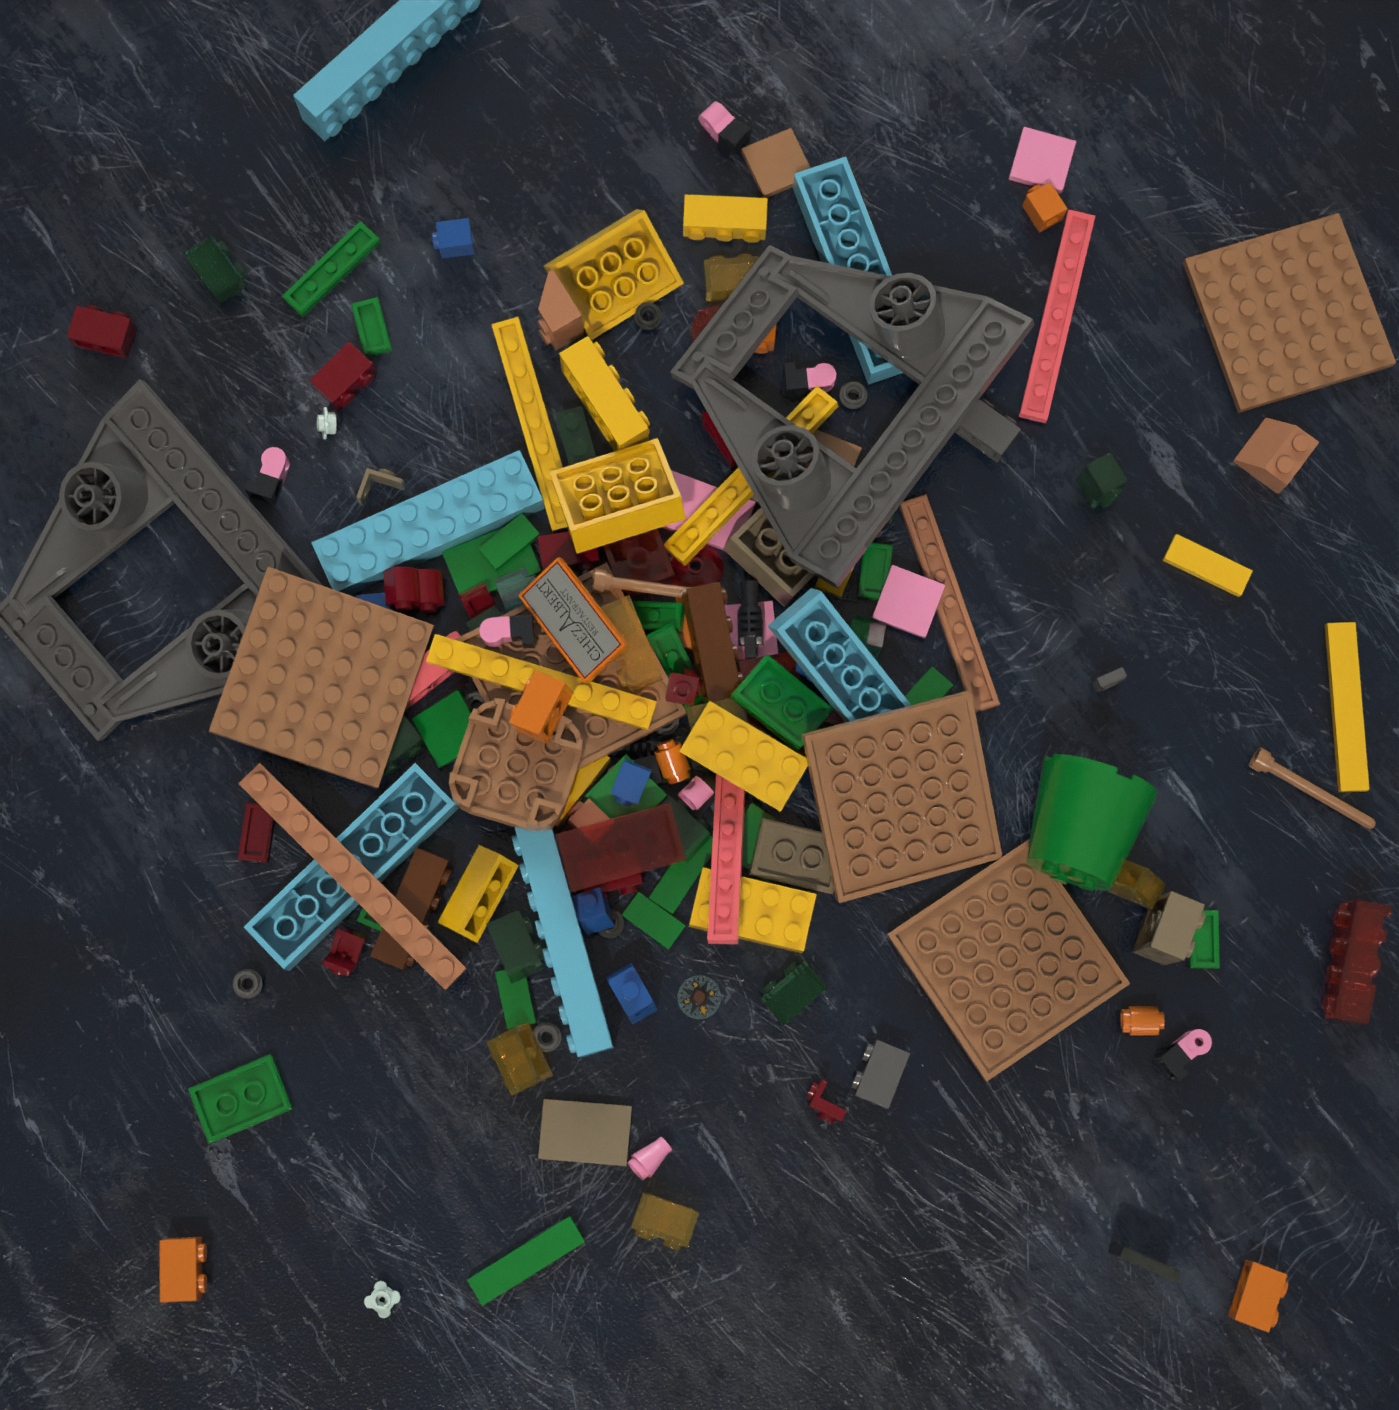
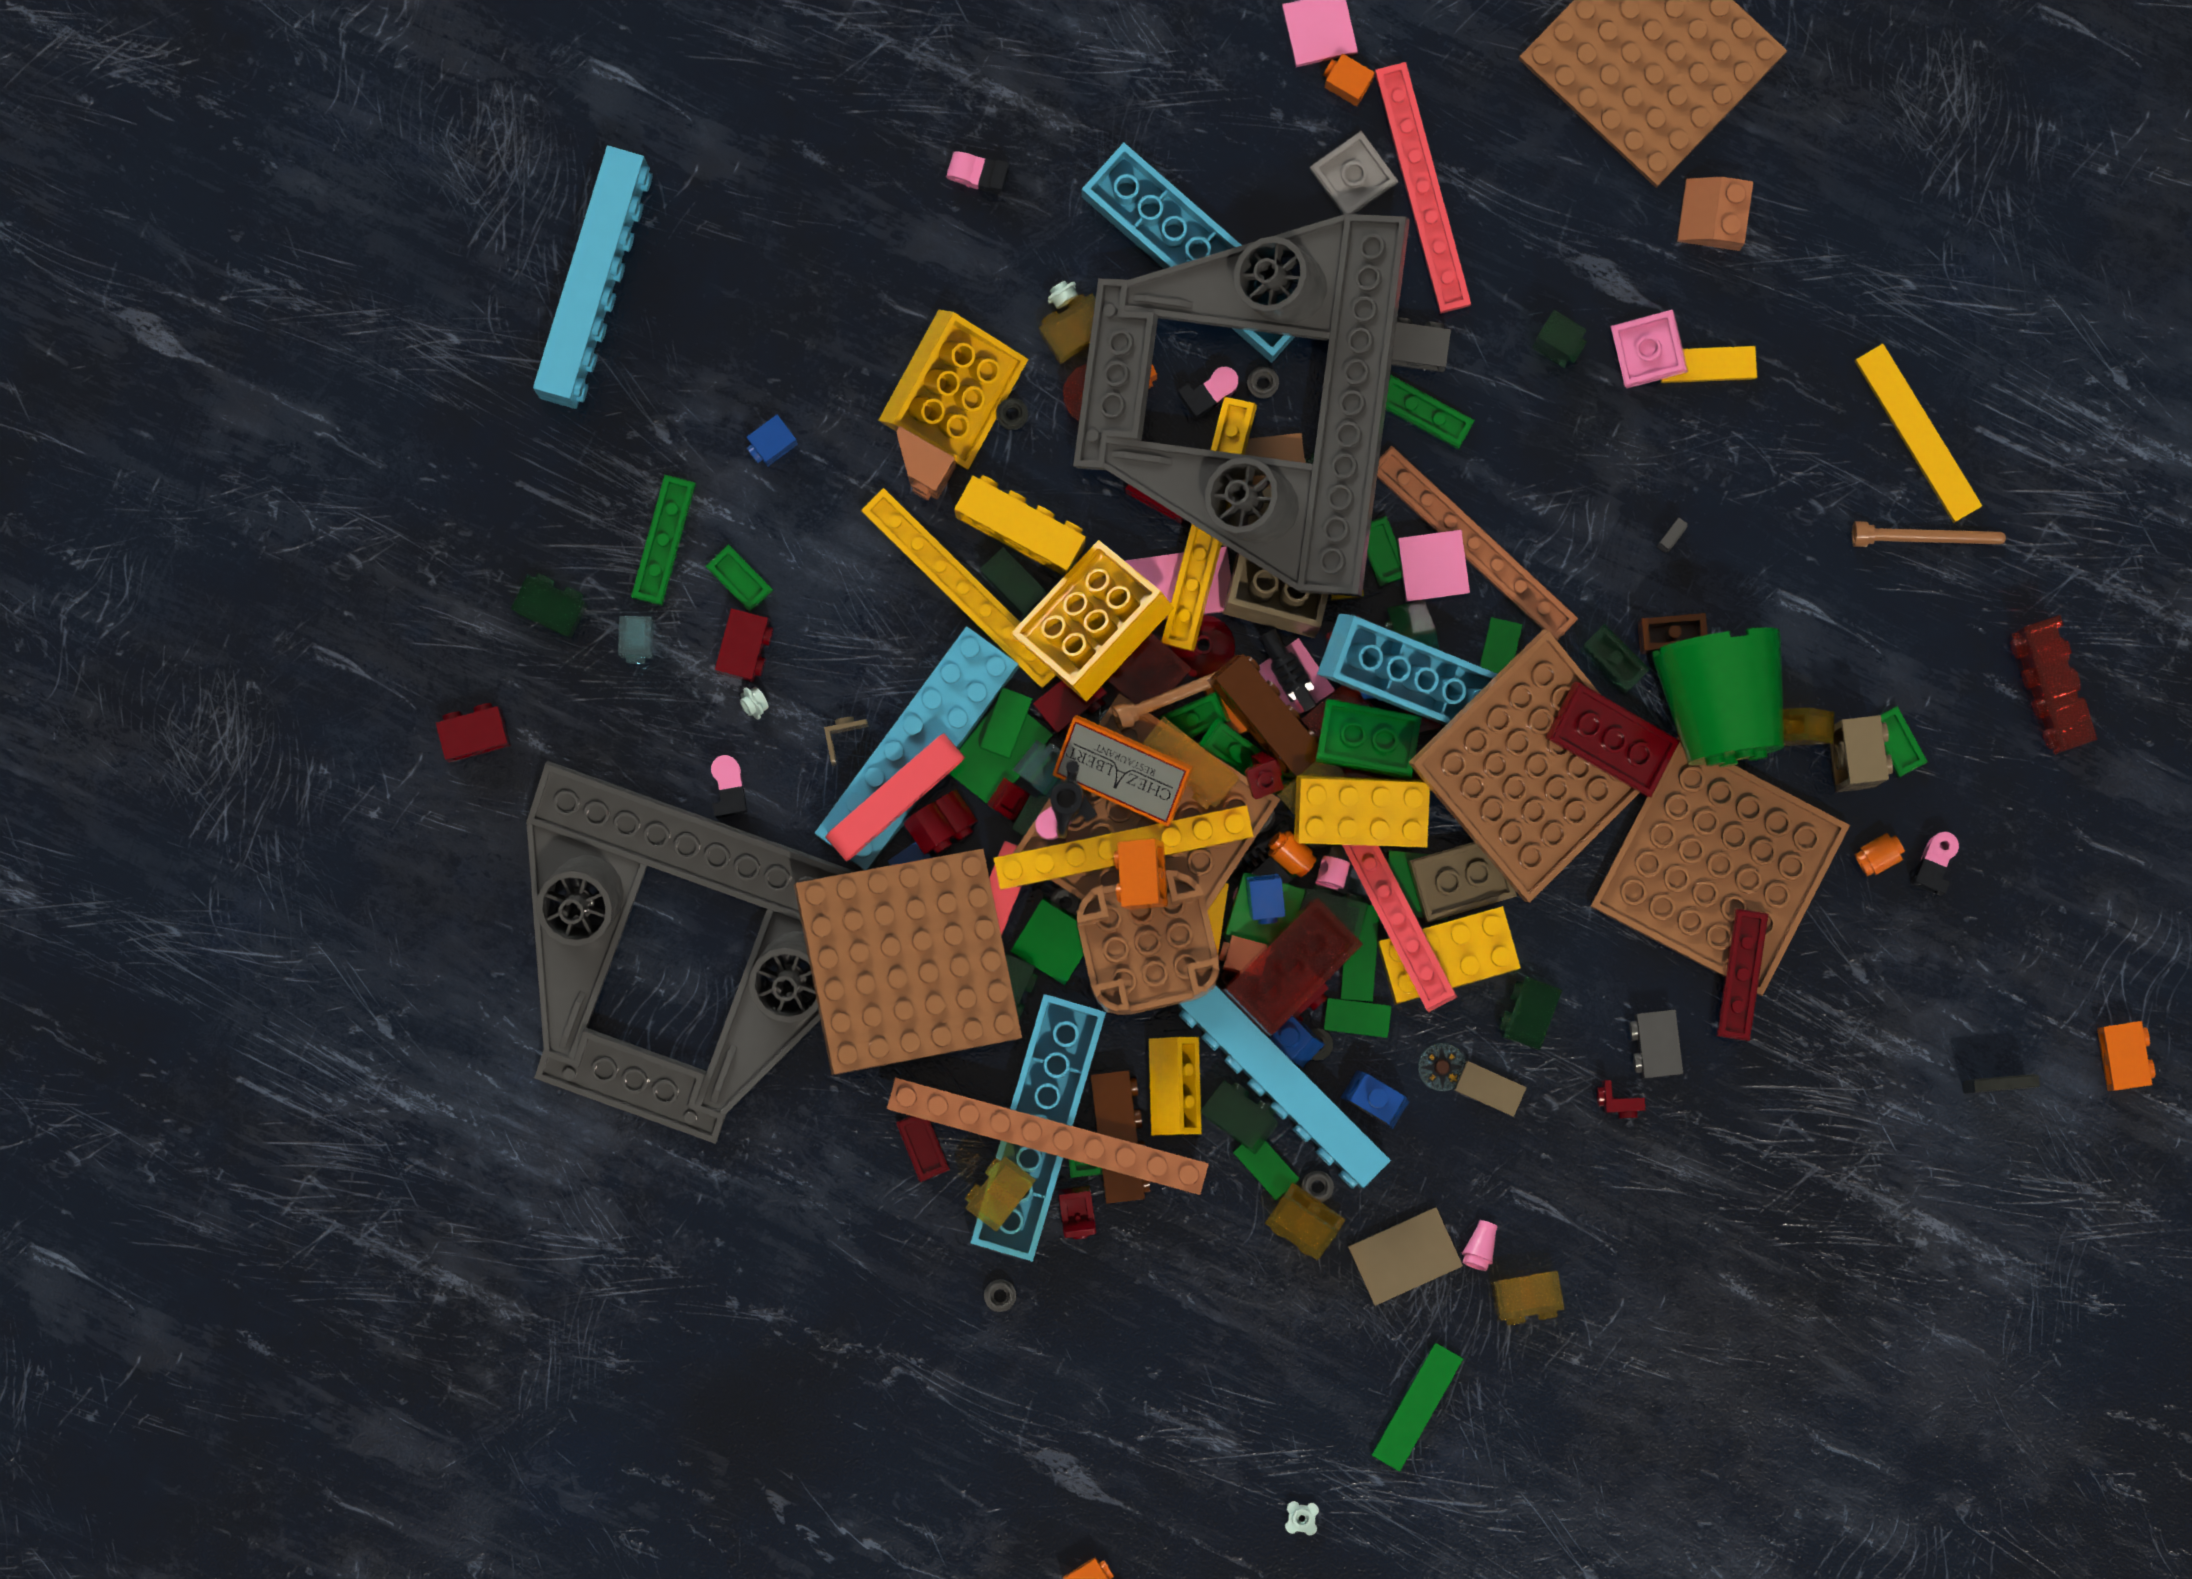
camera: 25 degrees left, 5 degrees up
(240, 1099) = (1057, 1408): green tile -> none
(266, 327) = (636, 638): none -> clear light blue brick
(287, 899) = (999, 1193): none -> clear yellow brick
(386, 546) = (895, 797): none -> coral beam
(514, 615) = (1067, 799): none -> black piece
(725, 218) = (1033, 269): yellow brick -> none
(727, 1035) = (1490, 1088): none -> dark tan tile
(736, 246) = (1062, 294): none -> light aqua plate
(775, 162) = (1052, 180): medium nougat tile -> none
(966, 484) = (1427, 413): none -> green tile
(976, 809) = (1612, 739): none -> dark red tile
(979, 1055) = (1742, 975): none -> dark red tile
(1010, 278) = (1353, 174): none -> light grey tile
(1011, 749) = (1614, 659): none -> clear green brick
(1059, 743) = (1669, 629): none -> reddish brown brick
(1168, 528) = (1649, 349): none -> bright pink tile

